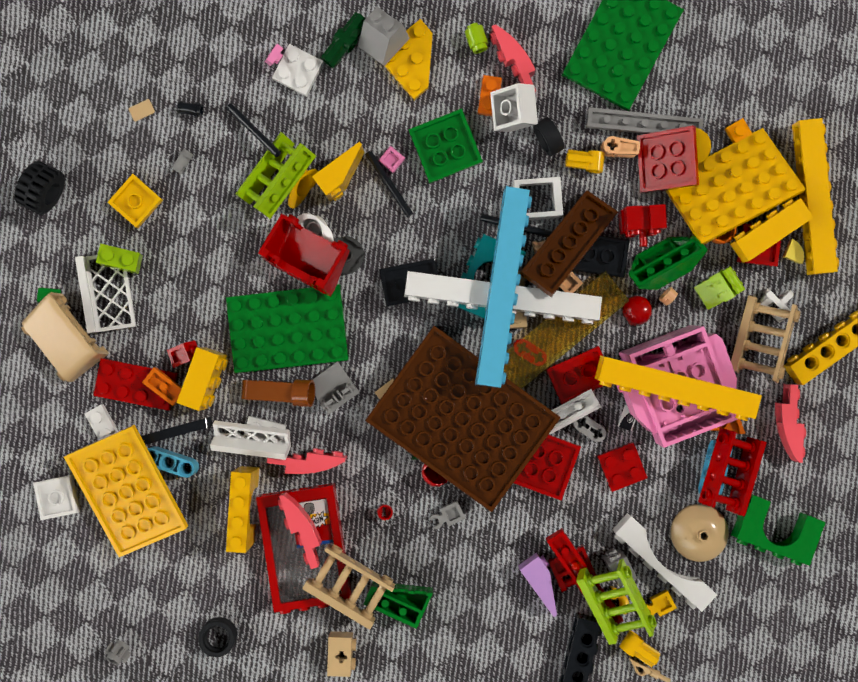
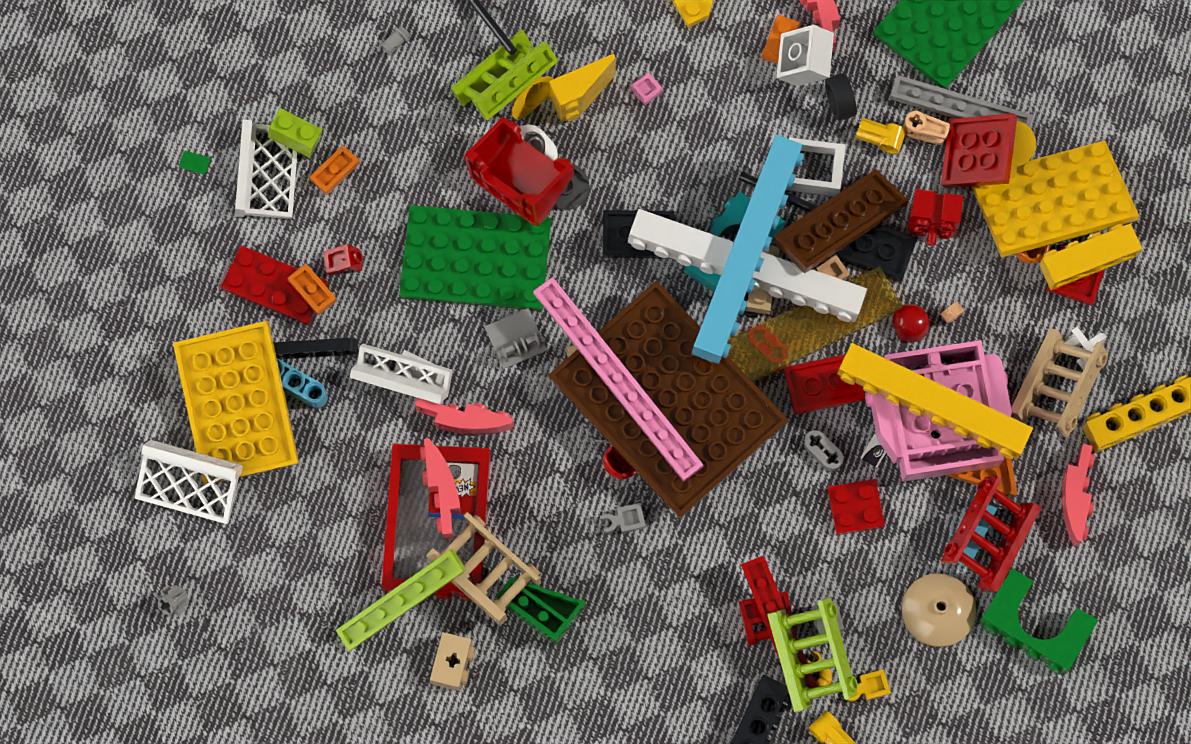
camera: 15 degrees right, 15 degrees down
(39, 187) = (222, 33): black tyre -> none
(56, 497) = (143, 399): white tile -> none
(62, 337) = (203, 210): tan windscreen -> none
(101, 422) = (219, 316): white plate -> none
(105, 546) = (188, 461): none -> white fence
(135, 201) = (328, 73): yellow plate -> none
(159, 281) = (334, 170): none -> orange plate
(202, 379) = (361, 290): yellow brick -> none
(213, 651) = (293, 592): black tyre -> none
(239, 530) = (380, 425): yellow arch -> none
(291, 623) = (401, 600): none -> lime plate
(299, 392) = (471, 330): dark orange beam -> none
(388, 512) = (551, 499): red hinge -> none
(389, 184) = (637, 115): black bar -> none
(420, 414) = (618, 379): none -> bright pink plate
(445, 146) = (715, 85): green plate -> none
(539, 577) = (722, 617): lavender slope -> none
(550, 467) = (761, 485): red plate -> none
(575, 409) = (807, 422): white plate -> none
(666, 262) = (956, 271): green wedge -> none
(693, 588) = (916, 675): white arch -> none
(719, 287) = (1015, 312): lime piece -> none
(738, 131) = (1074, 138): light orange plate -> none
(794, 252) = (1119, 293): light yellow tile -> none
(813, 173) = (1154, 233): yellow brick -> none

